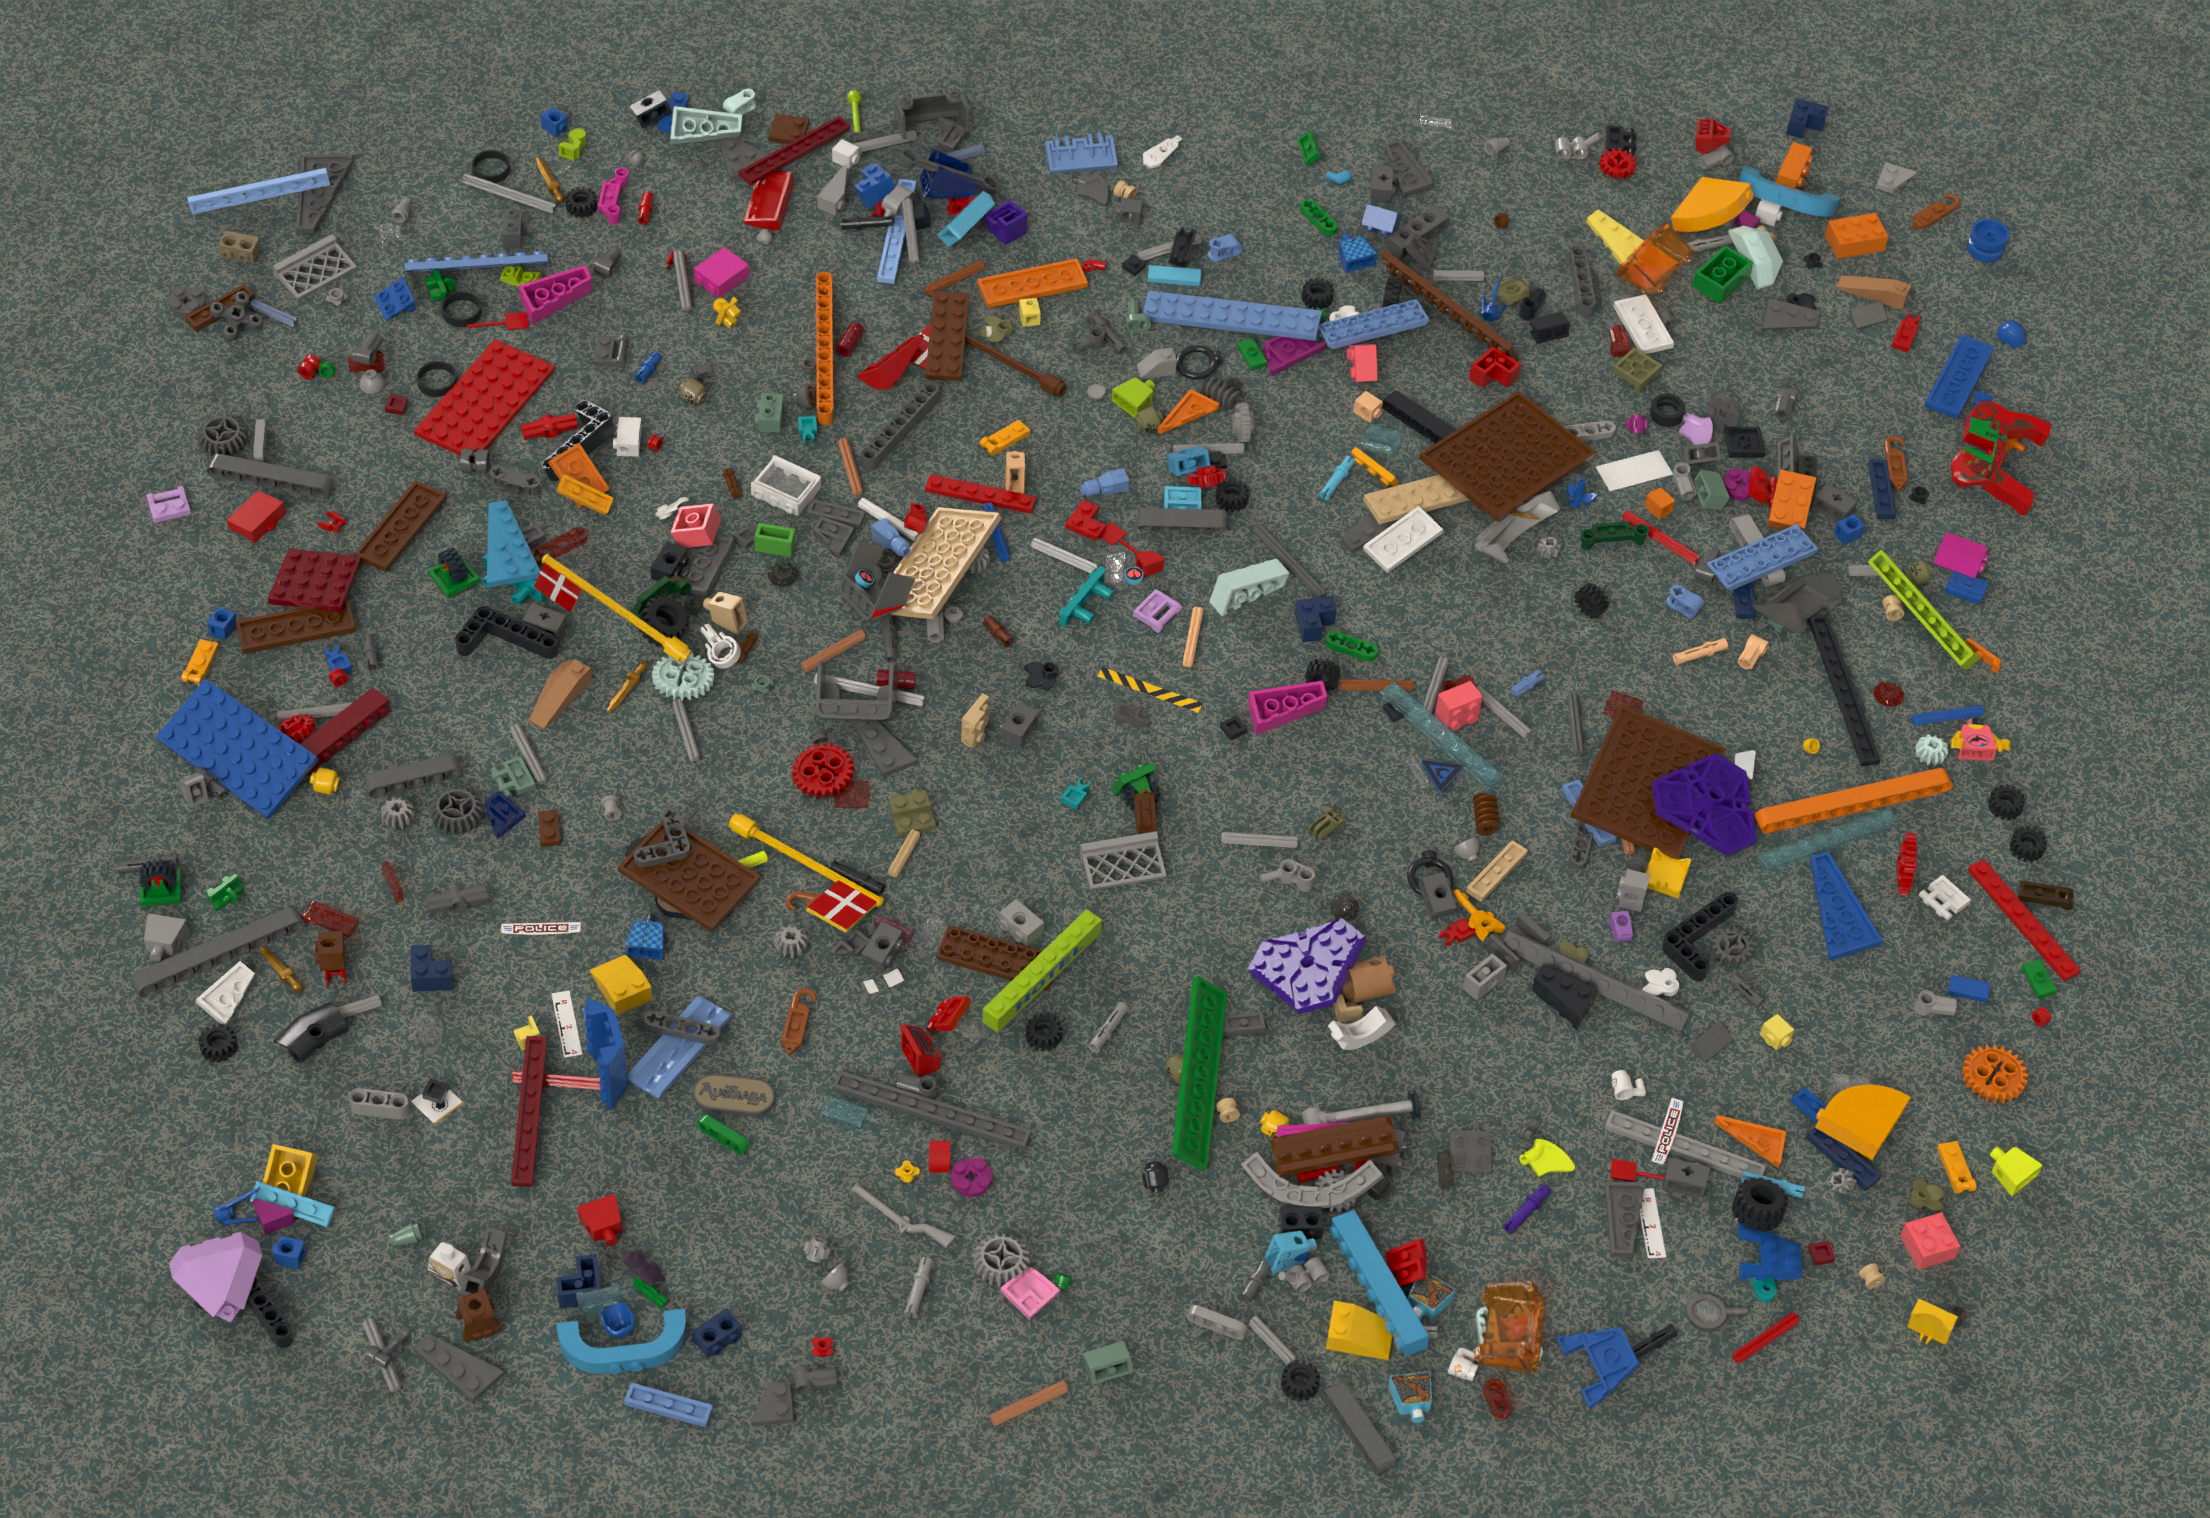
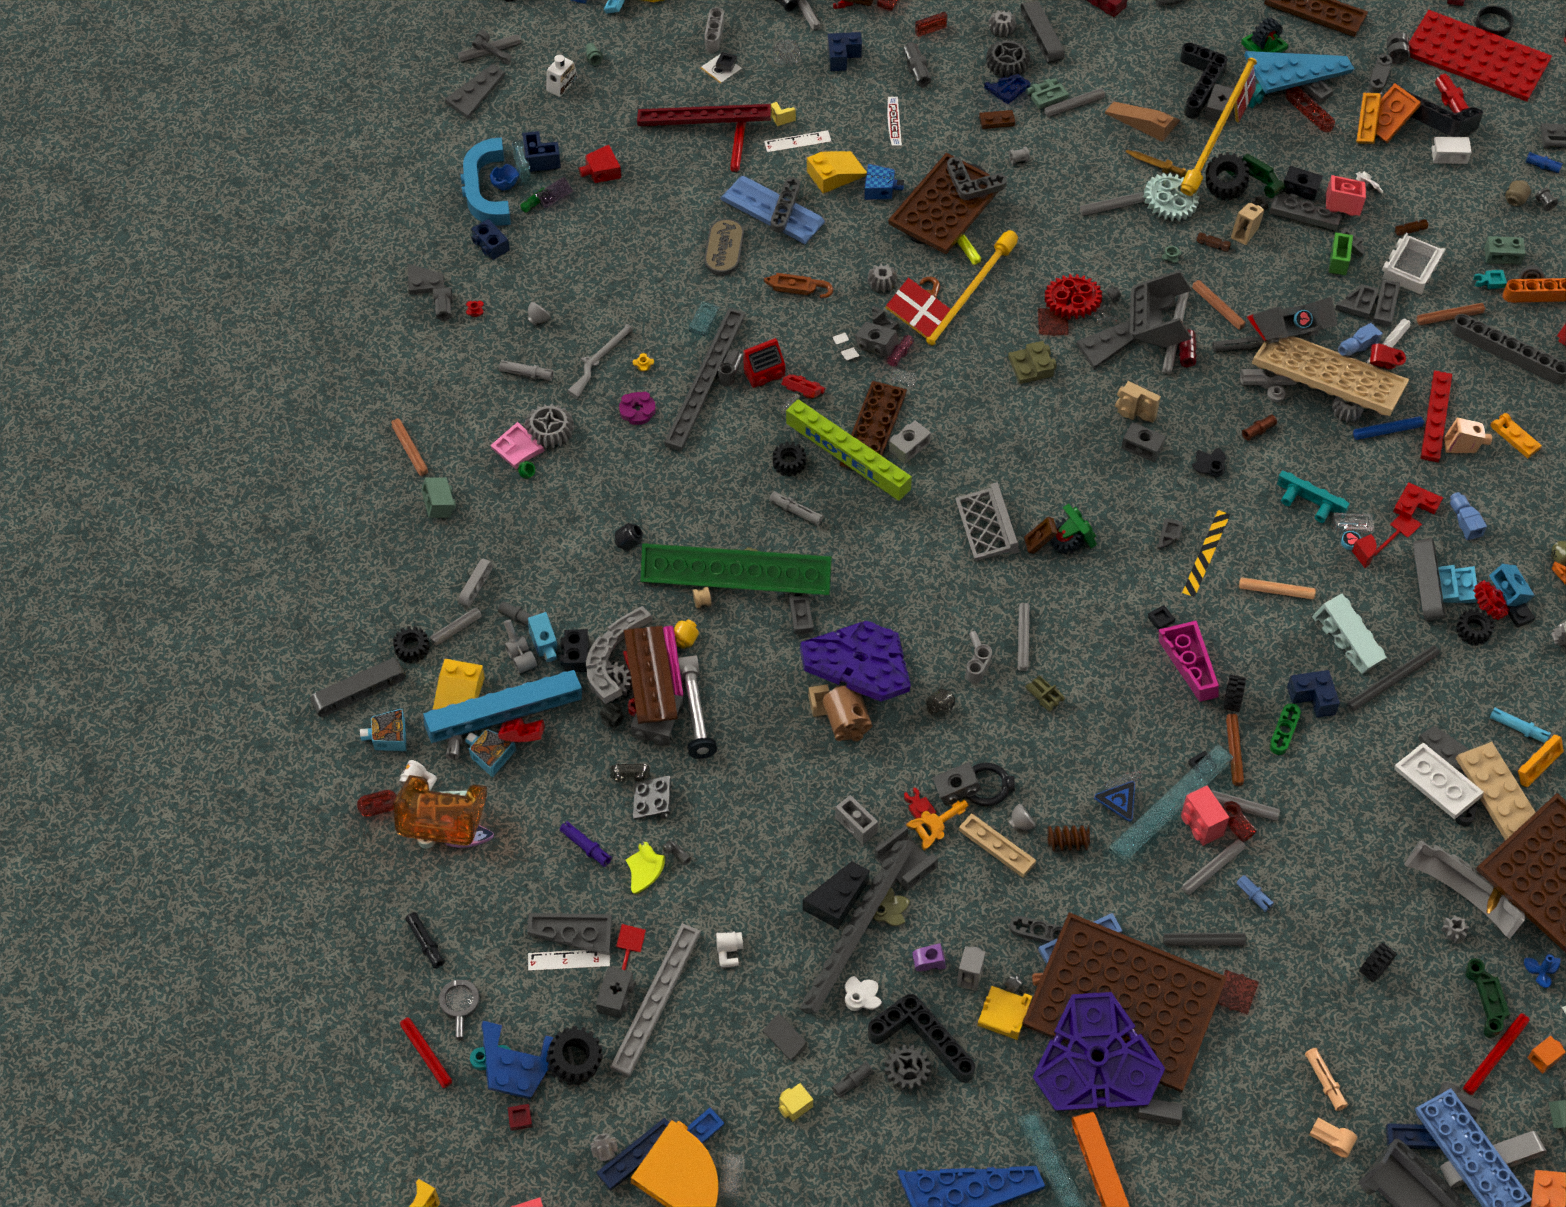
camera: 95 degrees right, 5 degrees up
(477, 1316) = (509, 88): reddish brown piece -> none
(488, 1262) = (557, 99): dark grey arch -> none
(607, 1047) = (733, 153): blue slope -> none
(655, 442) = (1448, 165): red bush -> none
(668, 1405) = (428, 213): medium blue plate -> none
(718, 645) = (1210, 220): white pin -> none
(723, 1134) = (682, 238): green beam -> none
(779, 579) = (1305, 272): clear smoke gear -> none
(816, 1249) = (564, 299): light grey gear -> none
(860, 879) = (953, 328): black pin -> none
(892, 558) = (1328, 337): clear smoke gear -> none
(904, 853) = (986, 358): tan axle -> none
(939, 1156) = (657, 383): red brick -> none
(1063, 555) = (1366, 482): light grey axle -> none
(1076, 795) = (1063, 485): teal plate -> none
(1154, 605) = (1309, 553): lavender plate -> none
(1224, 448) = (1538, 611): light grey axle -> none
(1363, 1031) = (793, 714): white arch -> none
(1610, 1356) = (410, 898): blue wing -> none
(1668, 1131) = (672, 981): sticker -> none
(1685, 602) = (1396, 1069): medium blue piece -> none
(1761, 1139) = (660, 1075): orange wing -> none
(1789, 1188) = (602, 1081): medium azure pin -> none
(1811, 745) = (1197, 1190): yellow hinge -> none
(1872, 1276) = (487, 1163): tan wheel -> none

